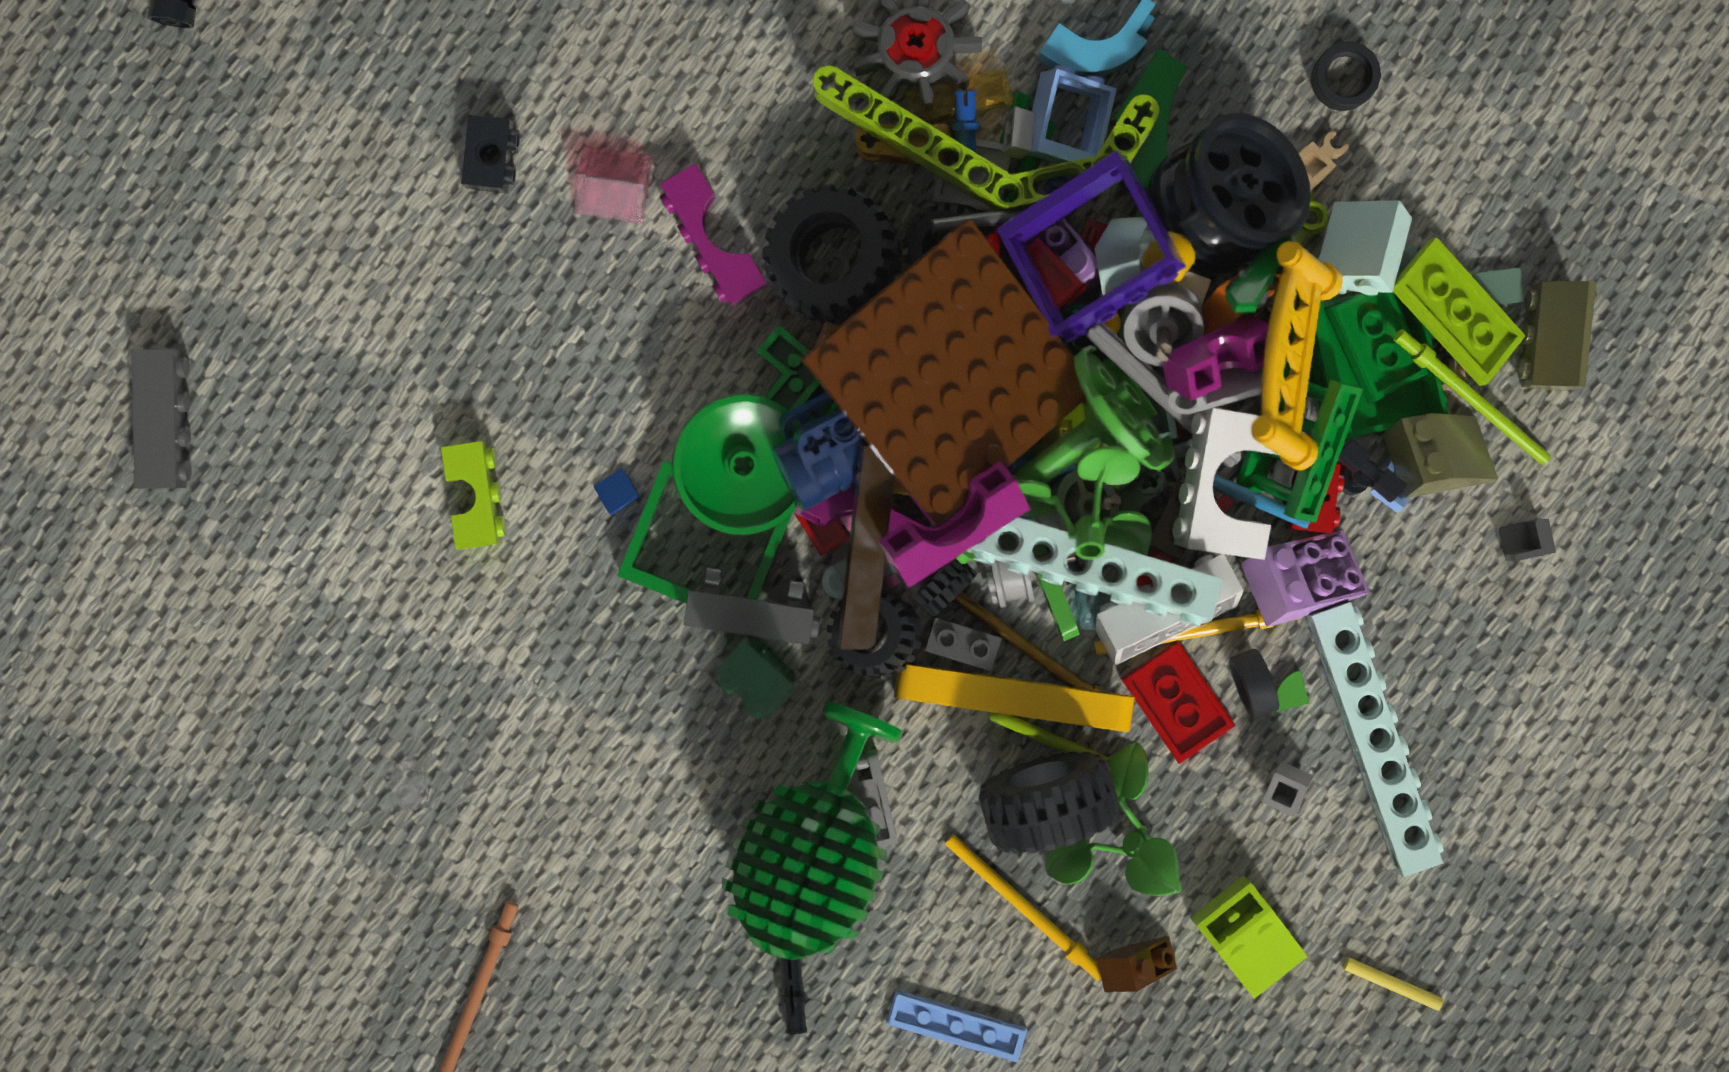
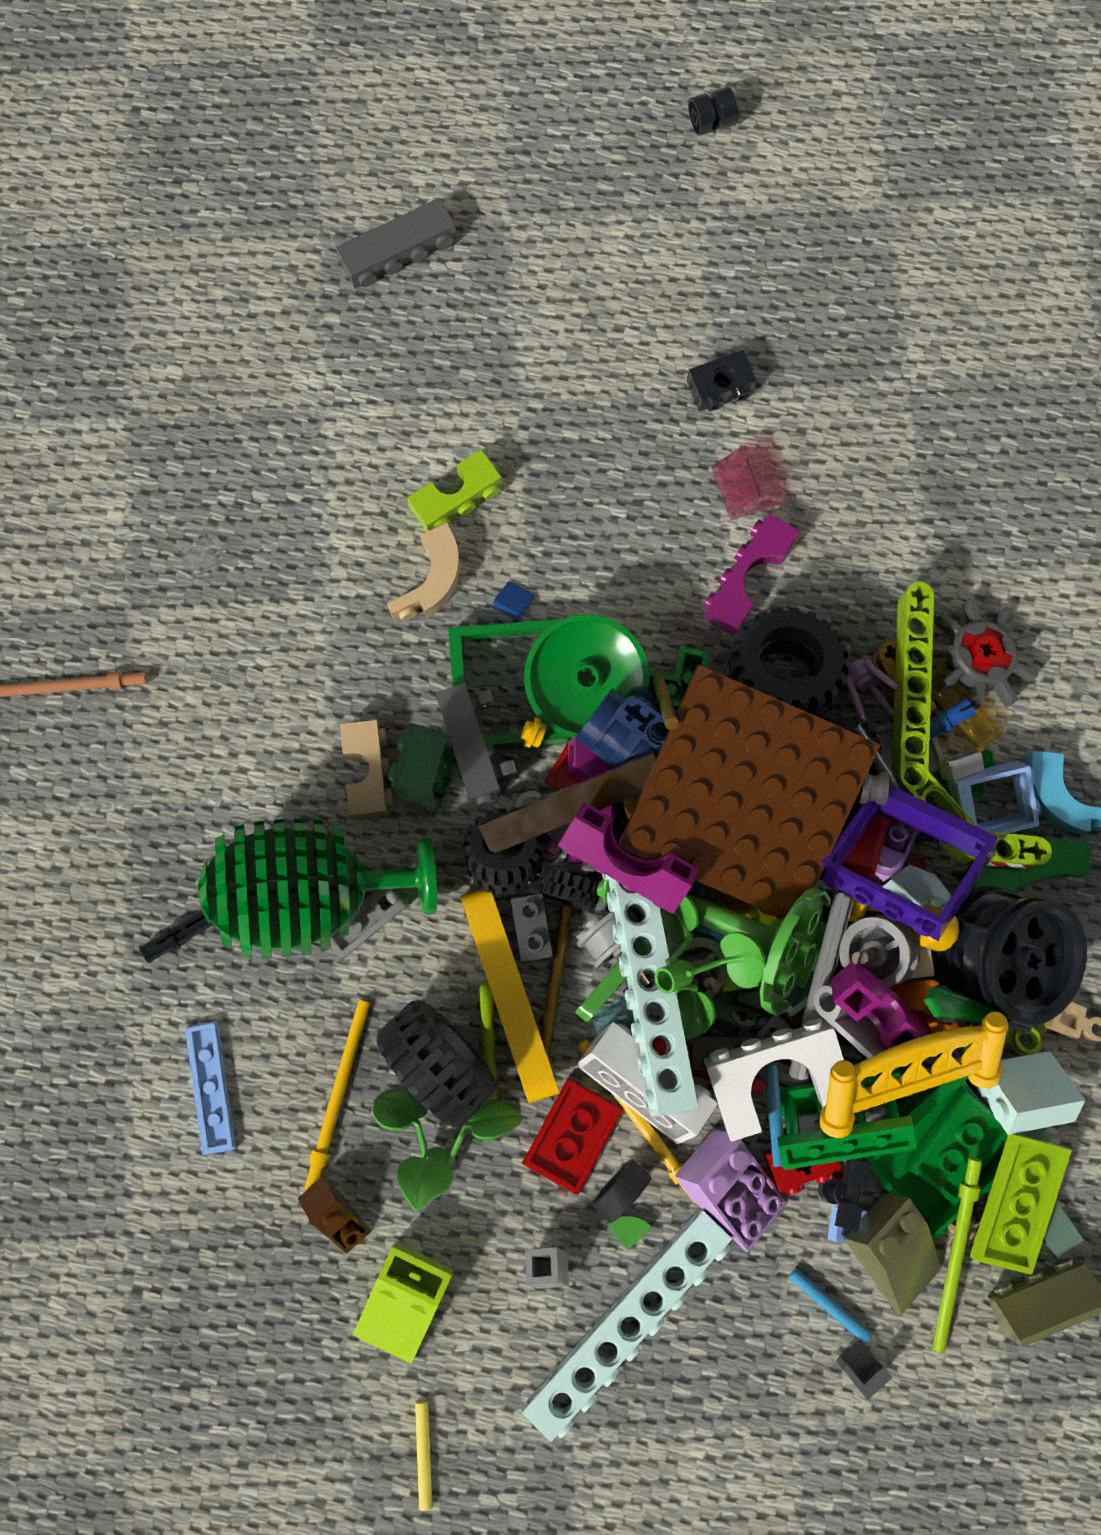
camera: 60 degrees right, 10 degrees down
(560, 555) = (441, 581): none -> tan arch
(692, 713) = (365, 742): none -> tan arch
(771, 545) = (533, 732): none -> yellow plate
(815, 405) = (665, 702): none -> pearl gold bar
(876, 180) = (862, 677): none -> lavender plant
(1005, 243) = (874, 789): none -> flat silver wheel
(1455, 539) = (830, 1305): none -> dark azure bar

